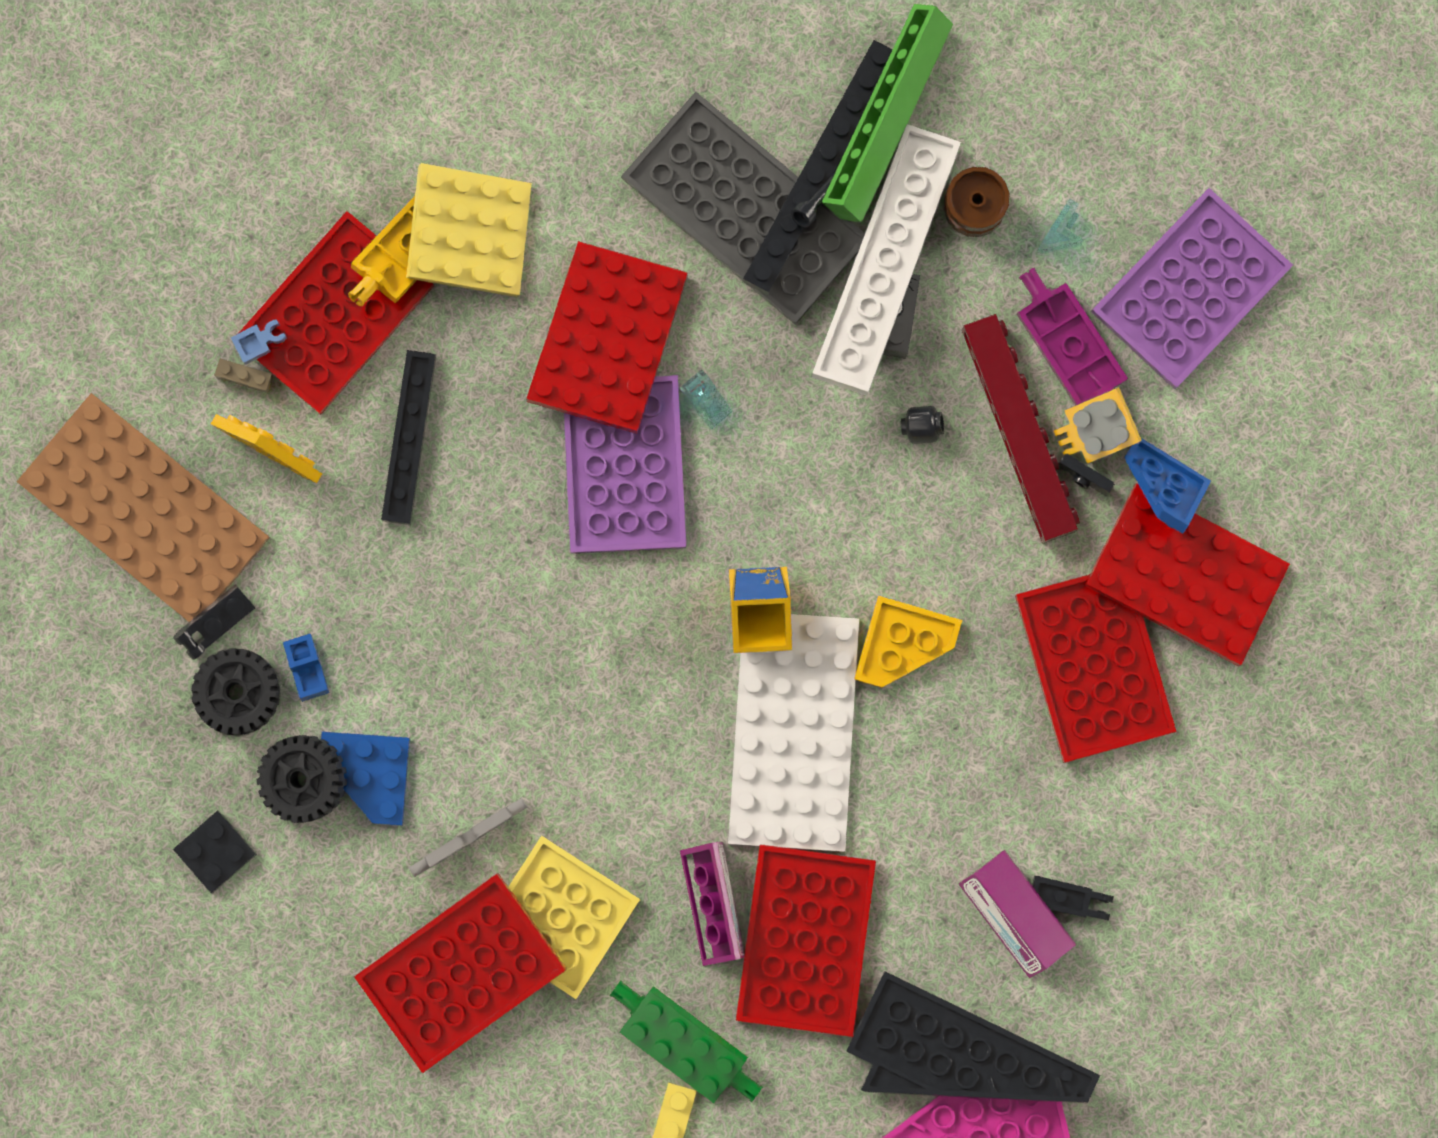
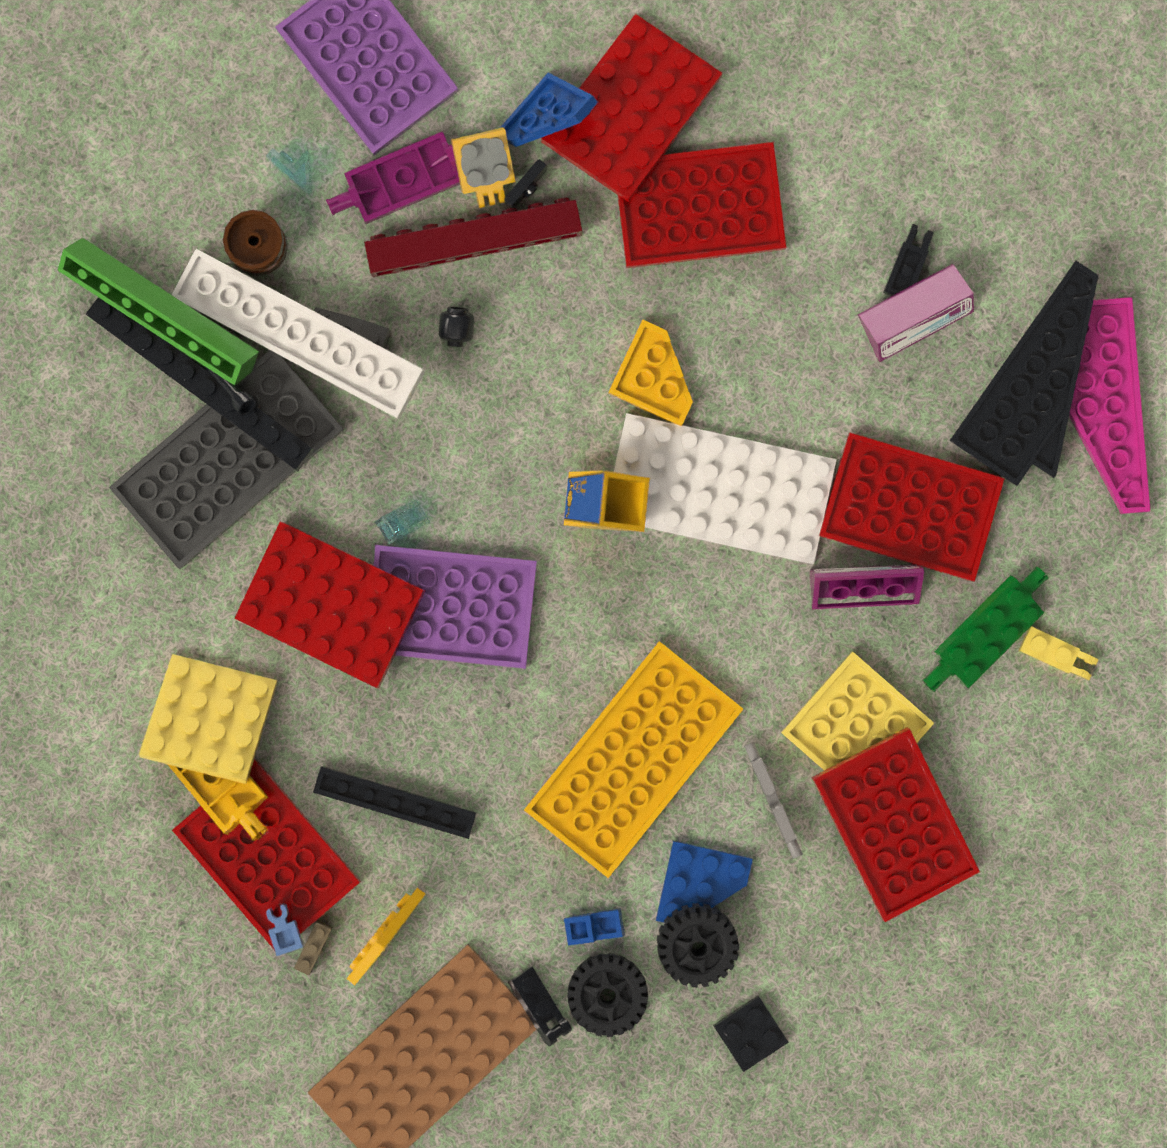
camera: 80 degrees left, 5 degrees up
(490, 682) = (633, 759): none -> yellow plate

